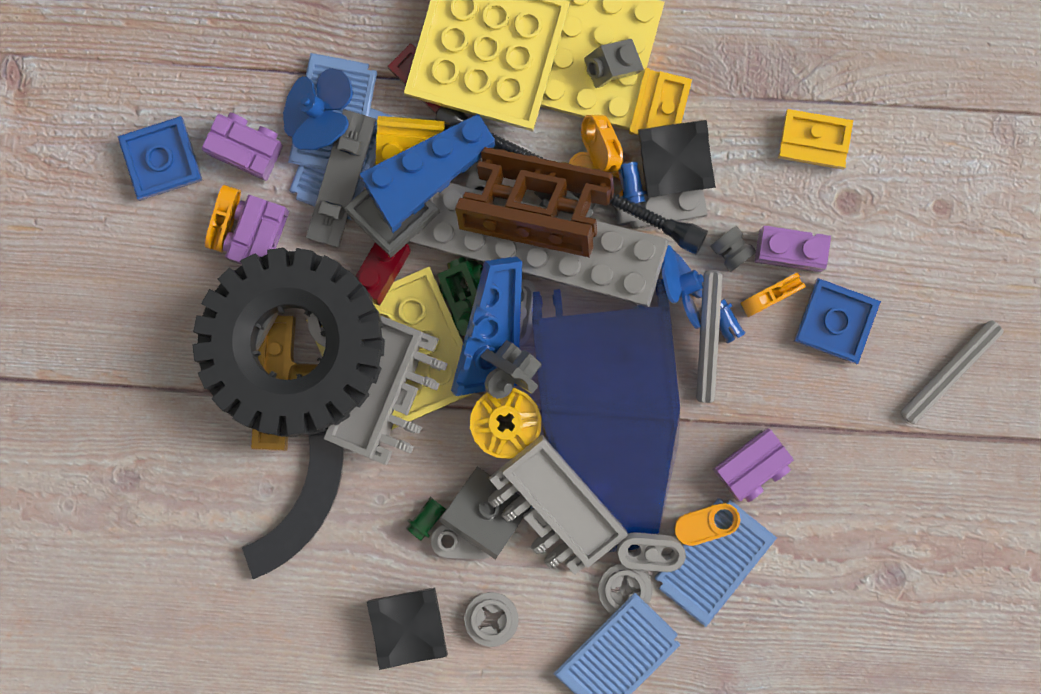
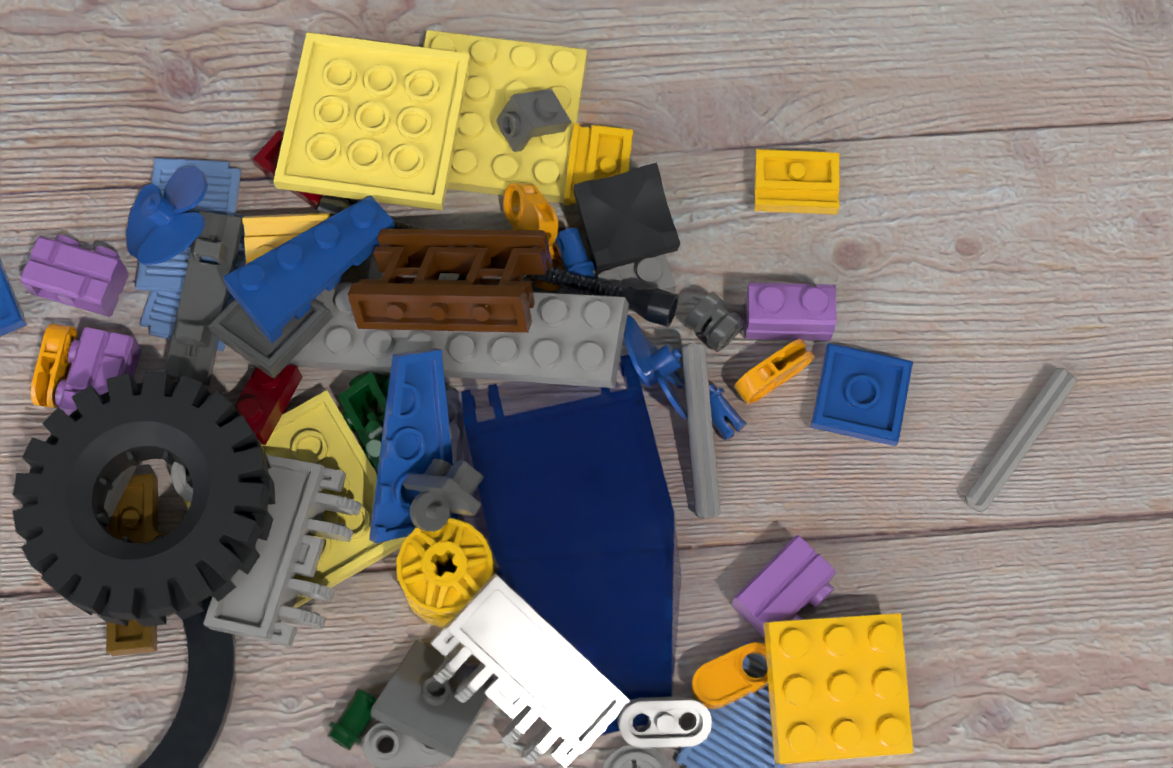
camera: 10 degrees left, 15 degrees down
(781, 544) = (838, 688): none -> yellow plate

